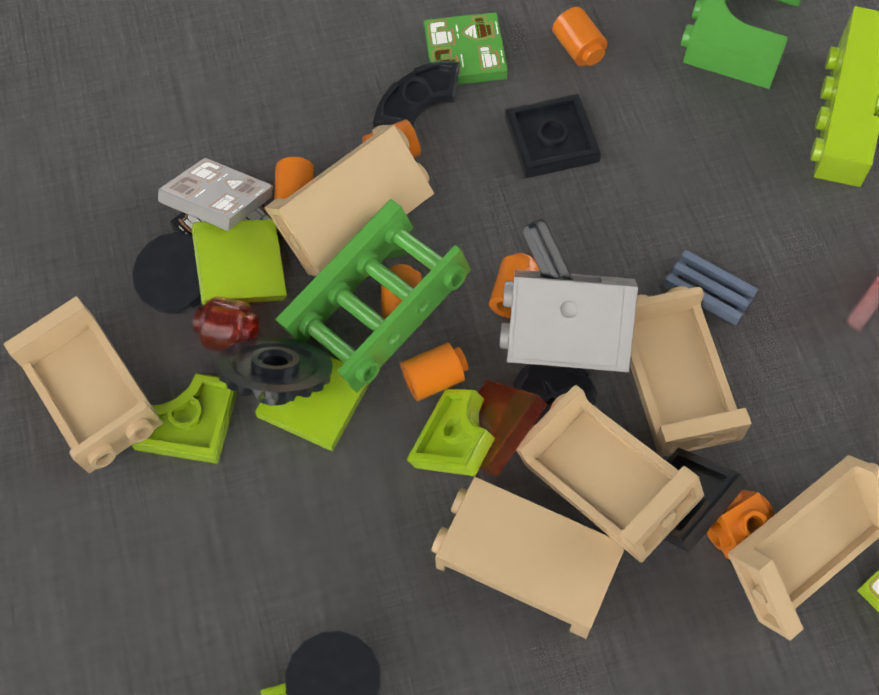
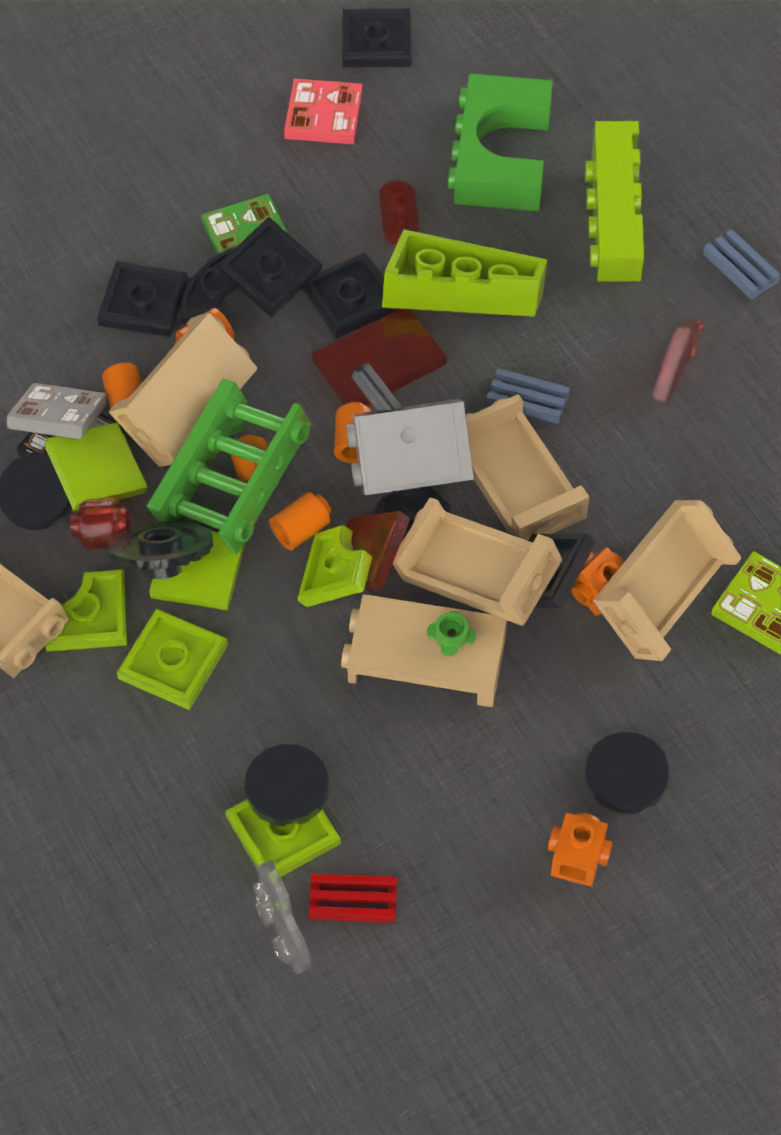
camera: 15 degrees left, 5 degrees down
(258, 493) = (172, 659): none -> lime tile
(342, 93) = (142, 298): none -> black tile
(476, 88) = (270, 267): none -> black tile
(564, 538) = (453, 622): none -> bright green plate
(575, 203) = (394, 347): none -> clear red tile
(580, 37) = (353, 200): orange brick -> none
(623, 52) = (396, 206): none -> clear red plate
(671, 143) = (461, 277): none -> lime wedge

